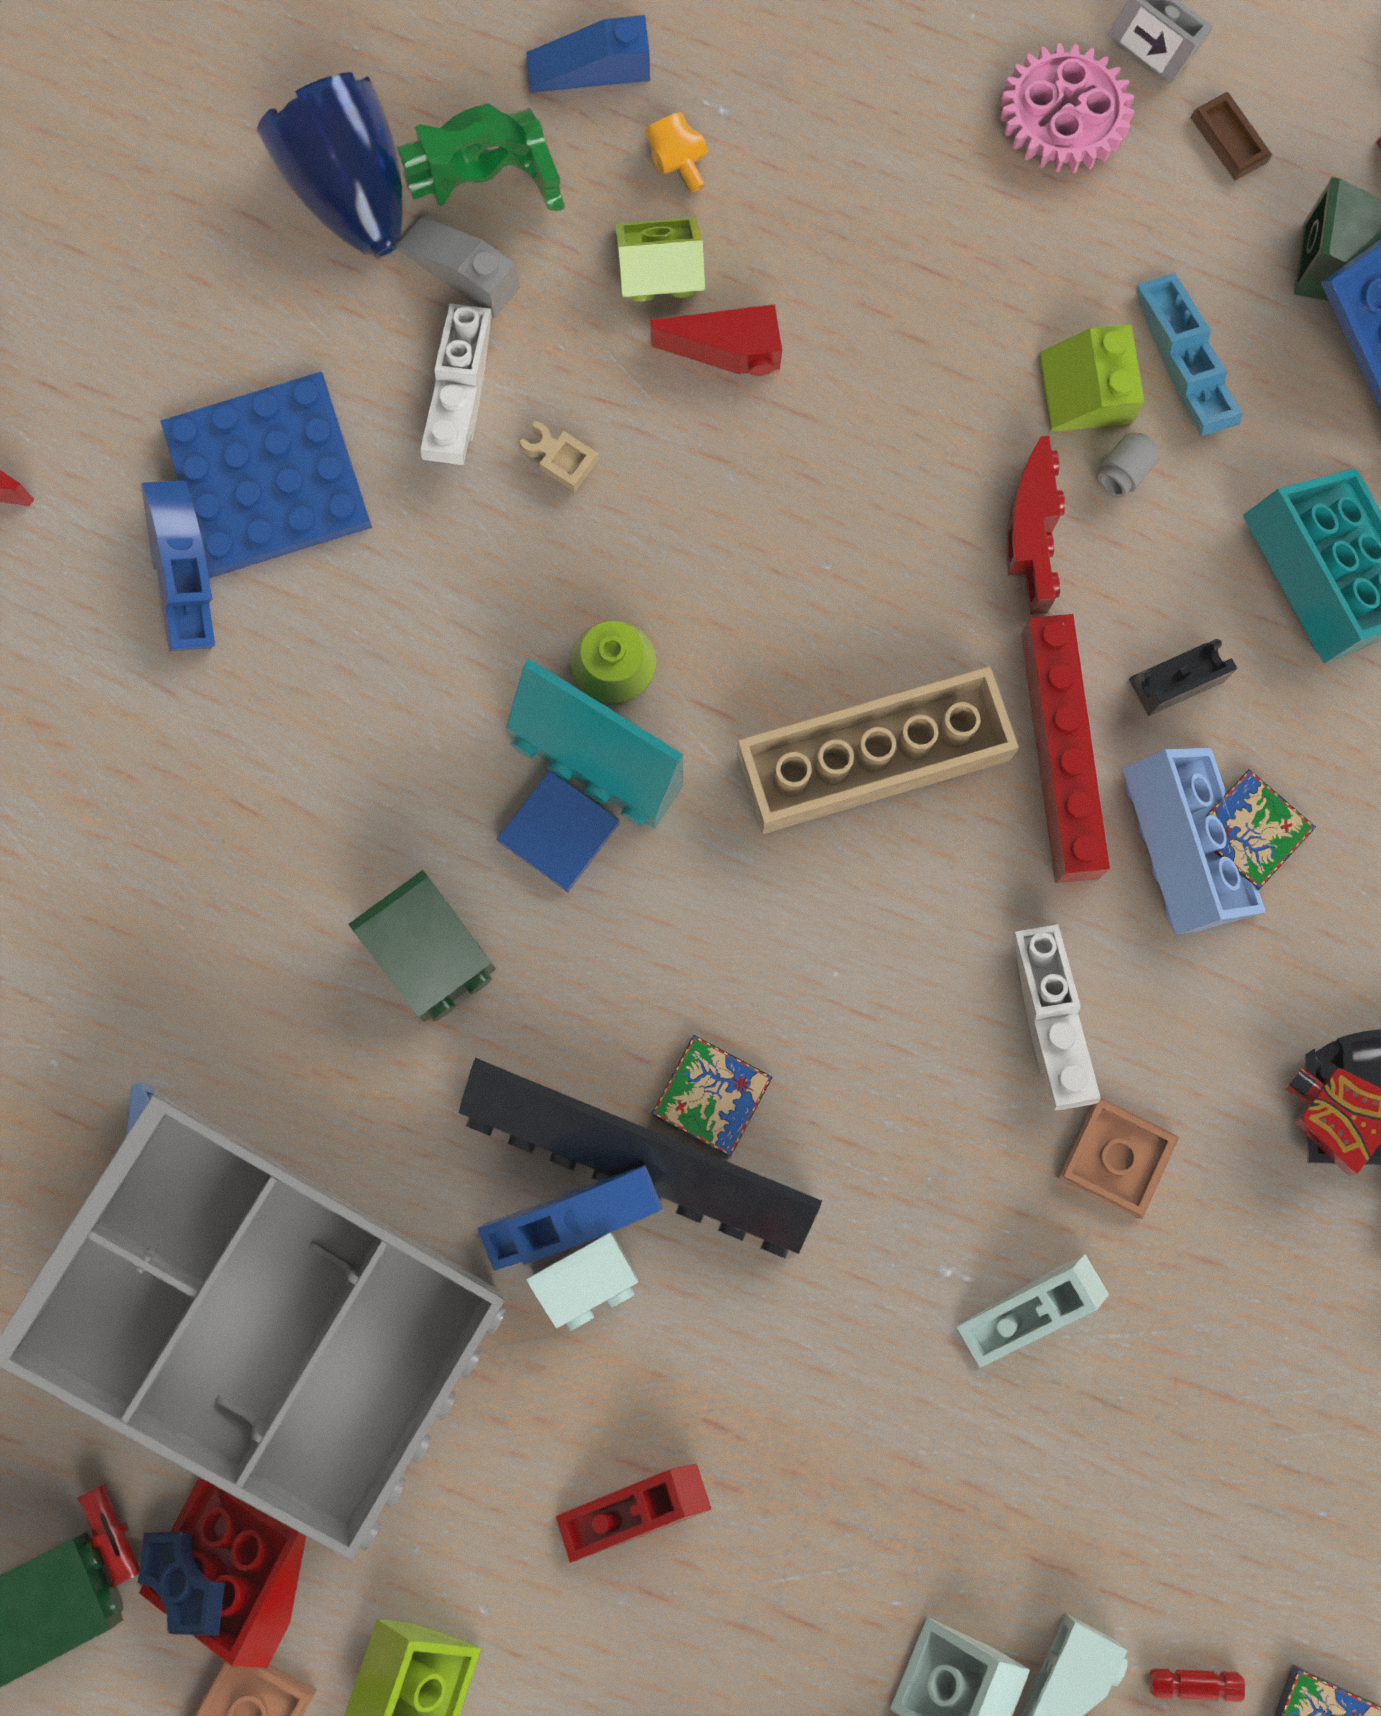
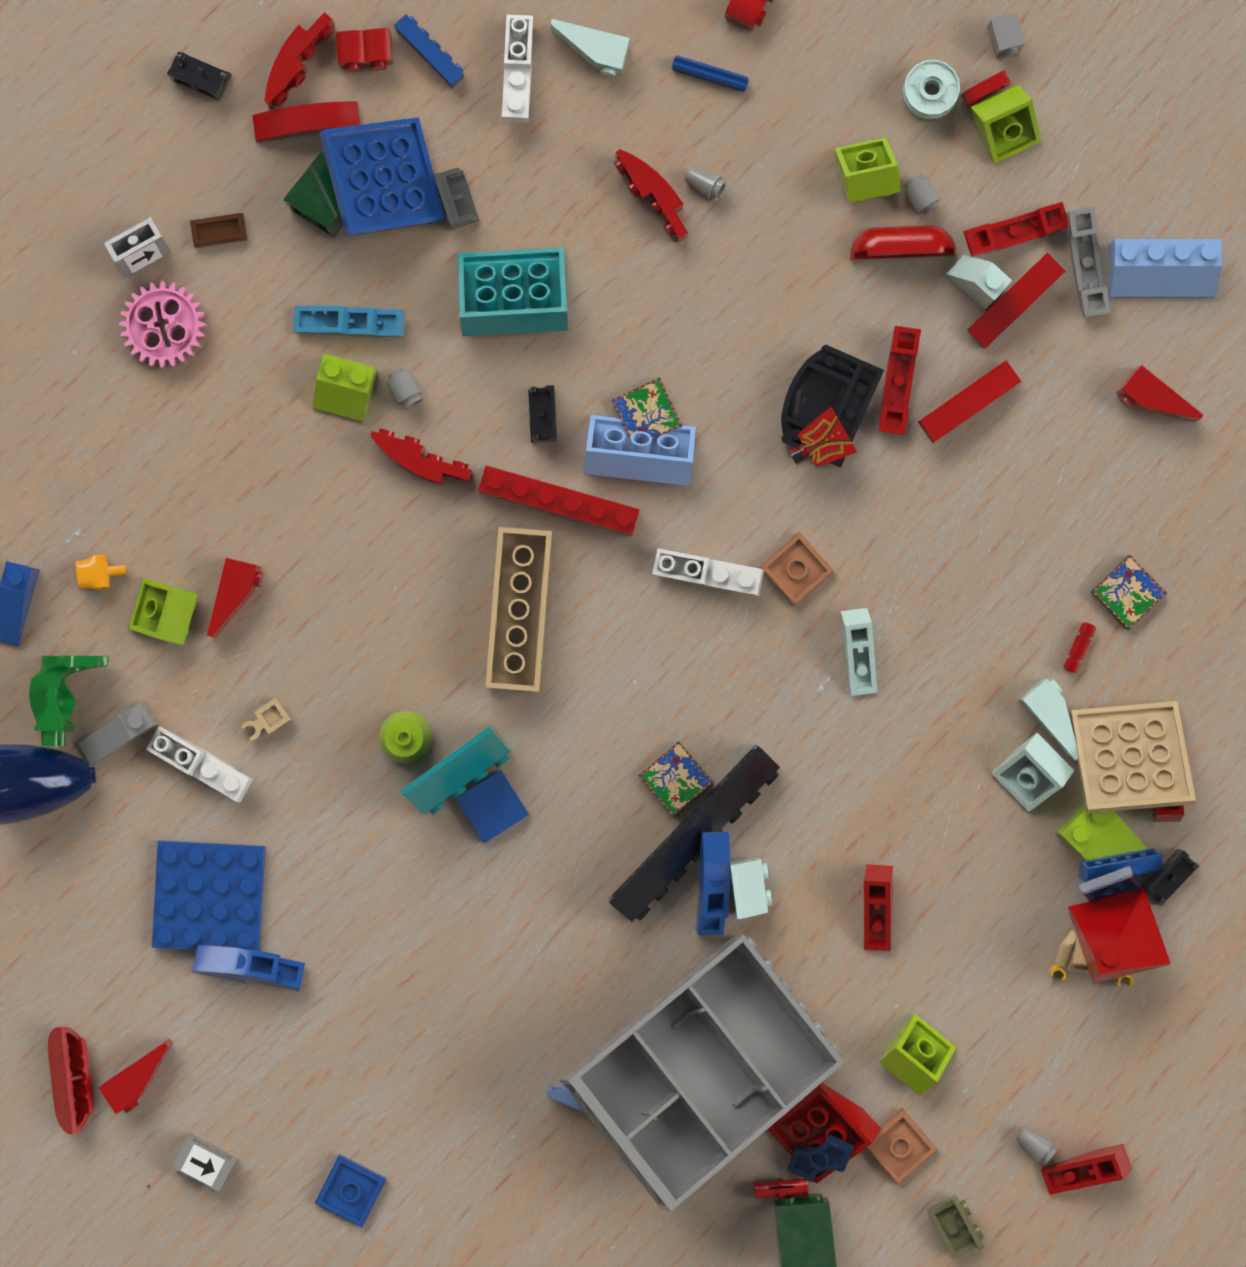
camera: 70 degrees left, 10 degrees up
(423, 947) = (533, 907): slope -> none

